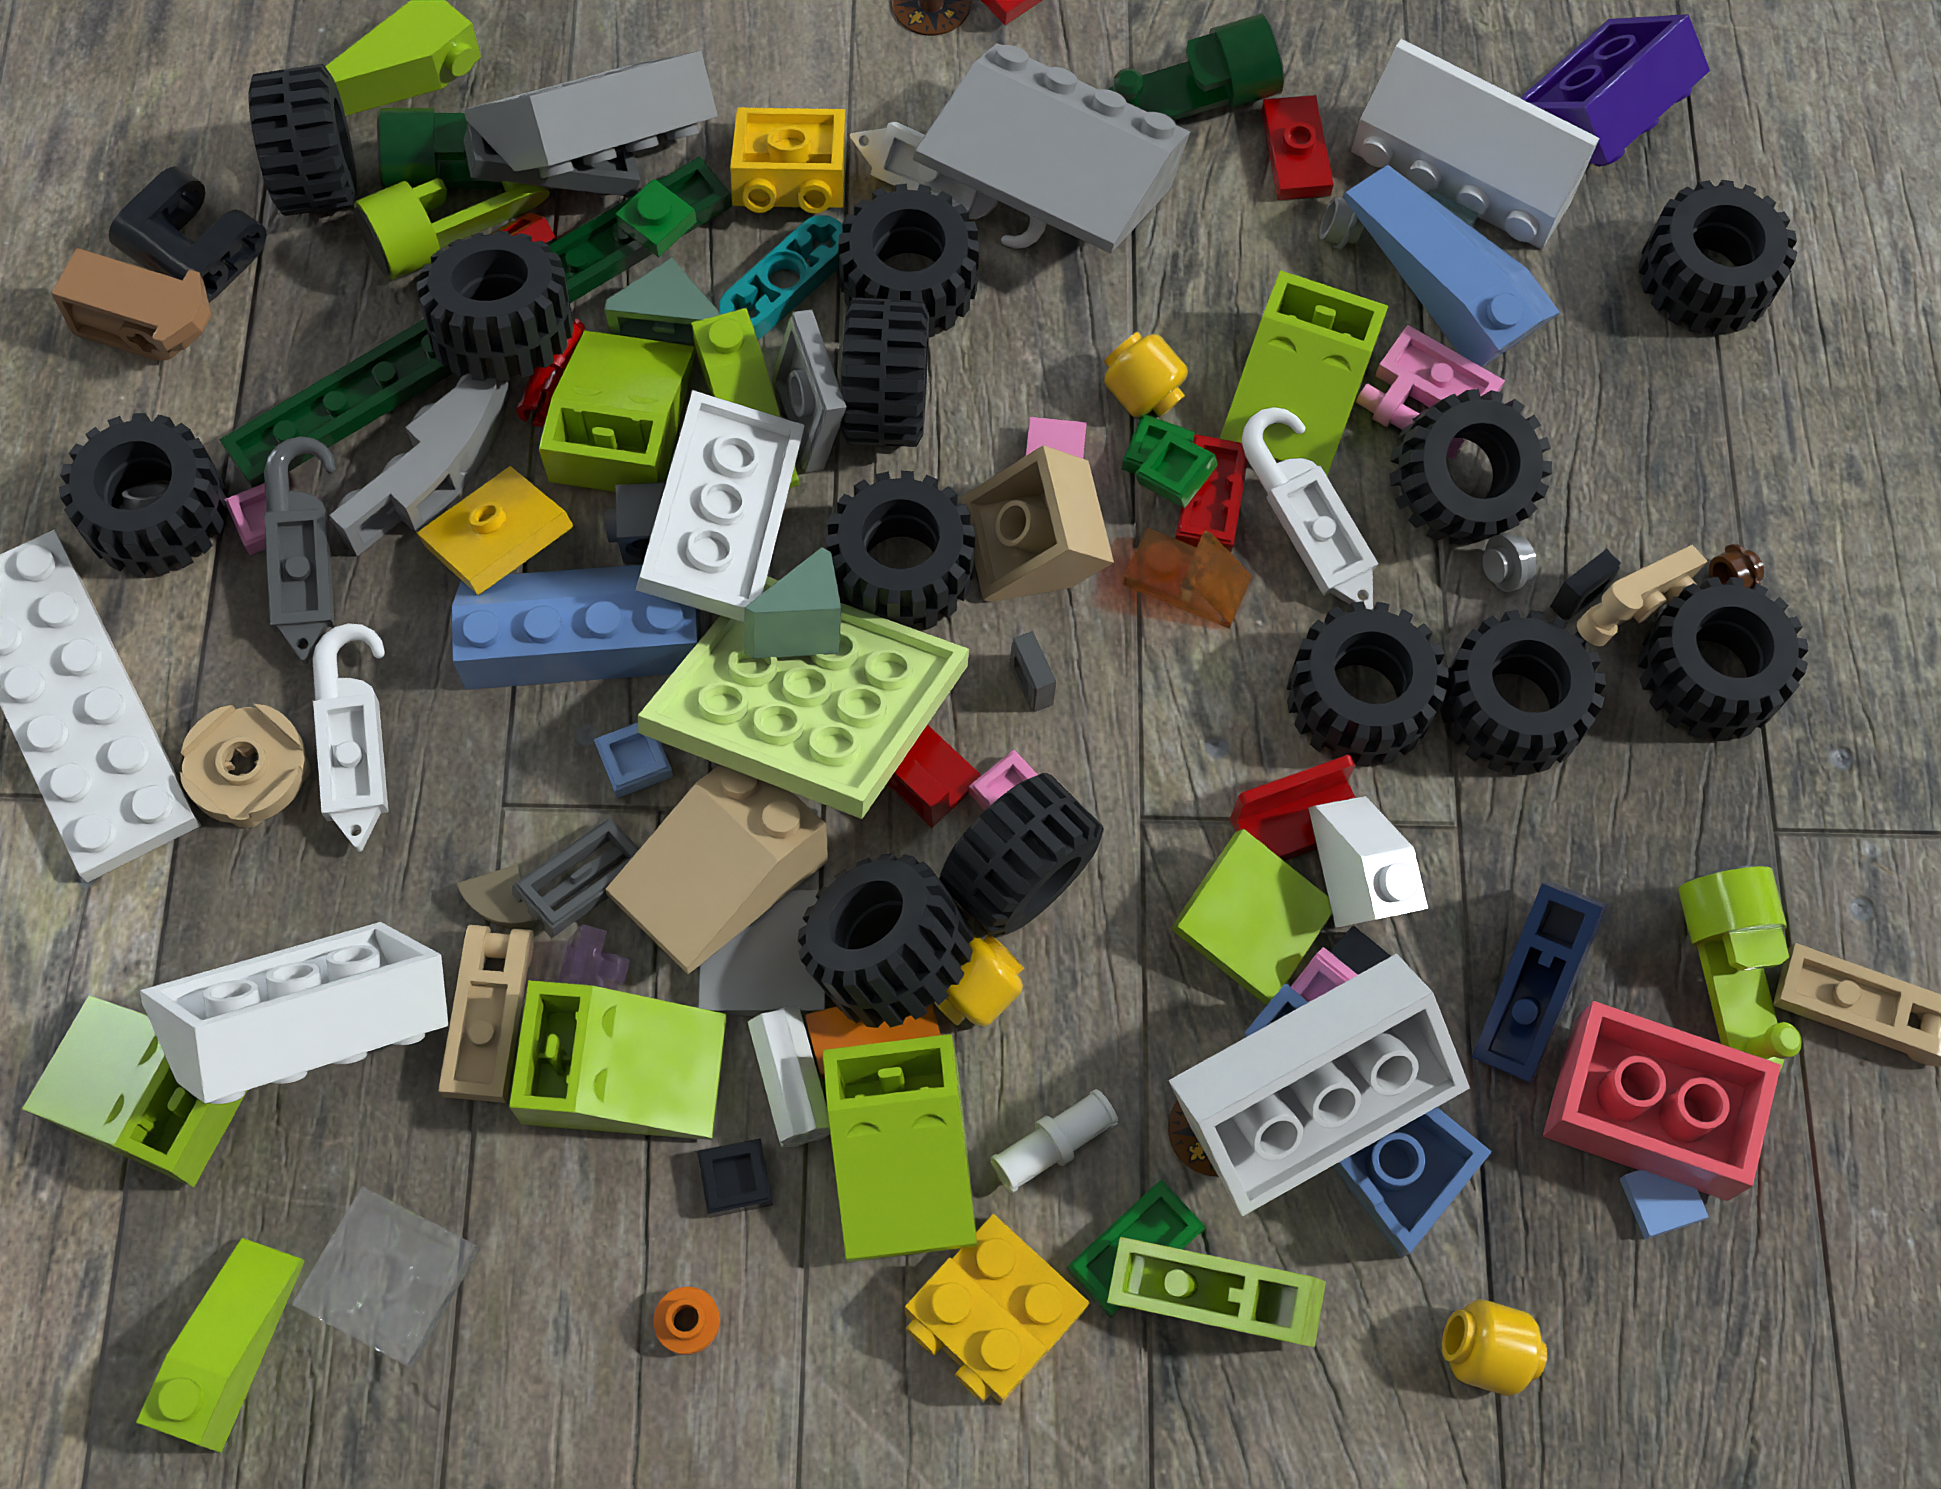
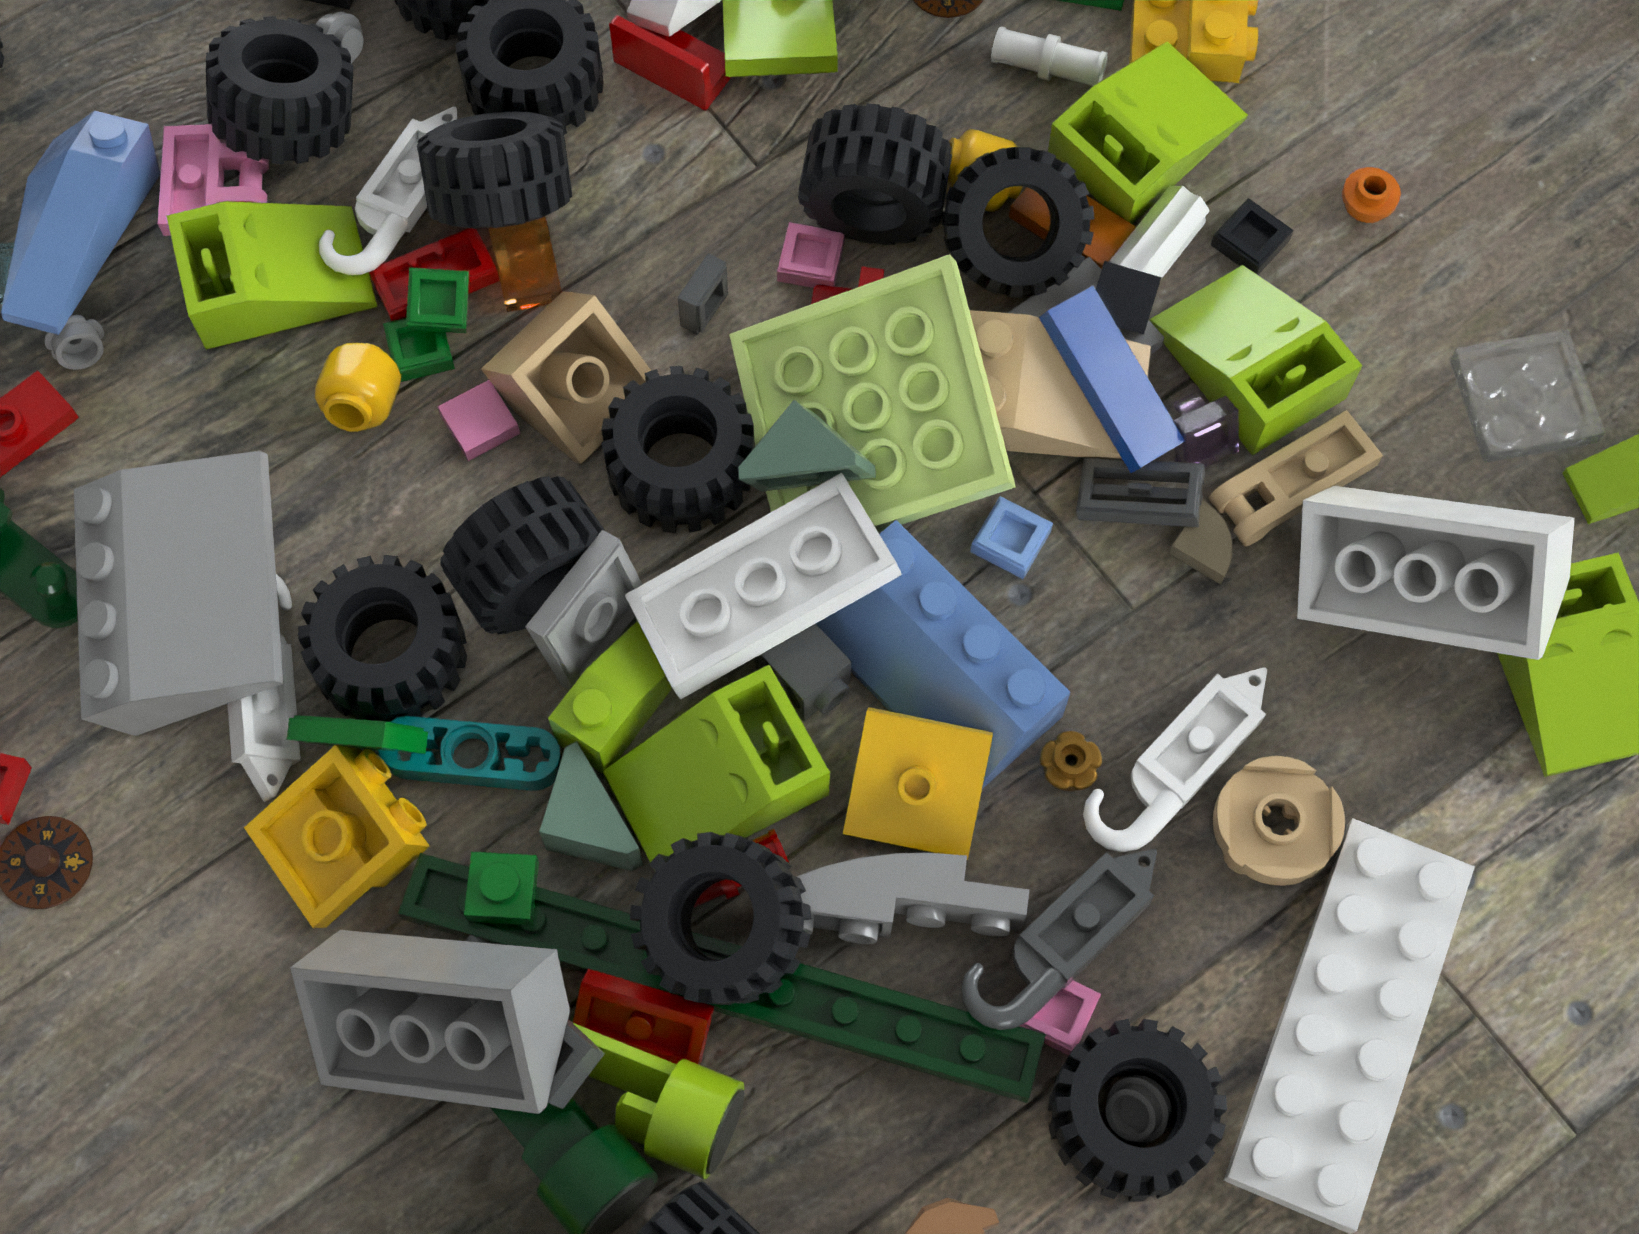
camera: 125 degrees left, 0 degrees up
(426, 671) = (1061, 774): none -> pearl gold plate
(676, 895) = (1111, 379): none -> tile
(751, 987) = (1128, 295): none -> black tile
(831, 193) = (357, 734): none -> green tile
(1258, 565) = (495, 169): none -> black tyre

